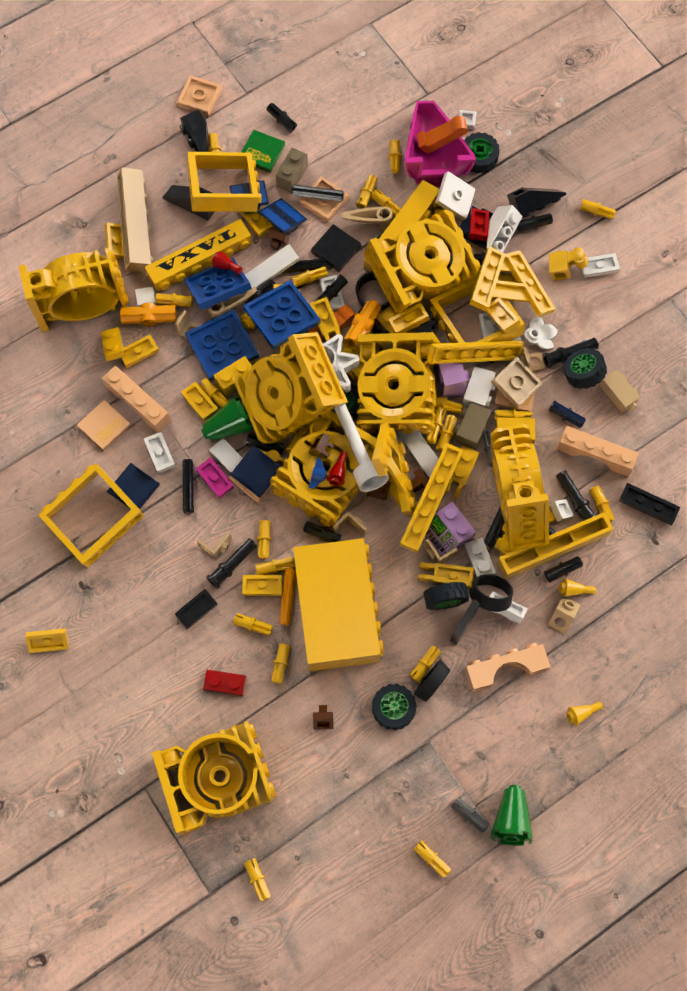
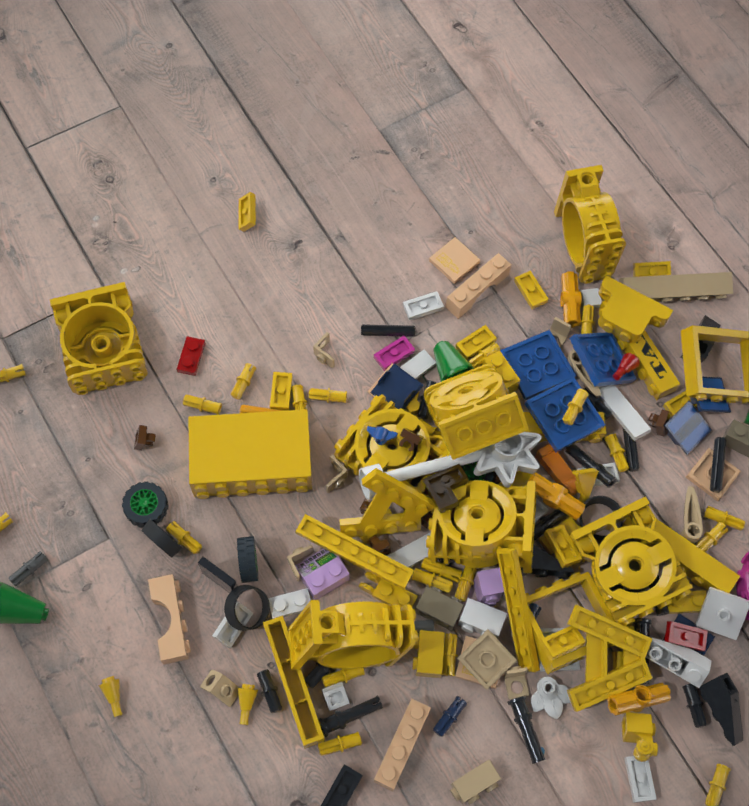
camera: 90 degrees right, 5 degrees down
(111, 535) = (363, 279): yellow window -> none
(112, 344) = (537, 266): yellow plate -> none
(135, 485) = (390, 285): dark blue piece -> none
(168, 258) = (629, 311): none -> yellow brick
(196, 609) = (265, 334): black tile -> none
(225, 569) = (300, 359): black pin -> none
(277, 302) = (575, 406): none -> yellow axle
(321, 533) = (328, 449): black axle -> none
(328, 321) = (562, 460): yellow hinge -> none
(336, 247) = (654, 482): black tile -> none
(337, 474) = (381, 453): red cone -> none
(345, 300) = (584, 482): none -> yellow tile
(369, 417) = (441, 486): none -> dark brown plate
(446, 573) = (274, 568): yellow hinge -> none
(537, 262) = (639, 698): none -> light orange piece
(585, 368) = (503, 741): black wheel -> none

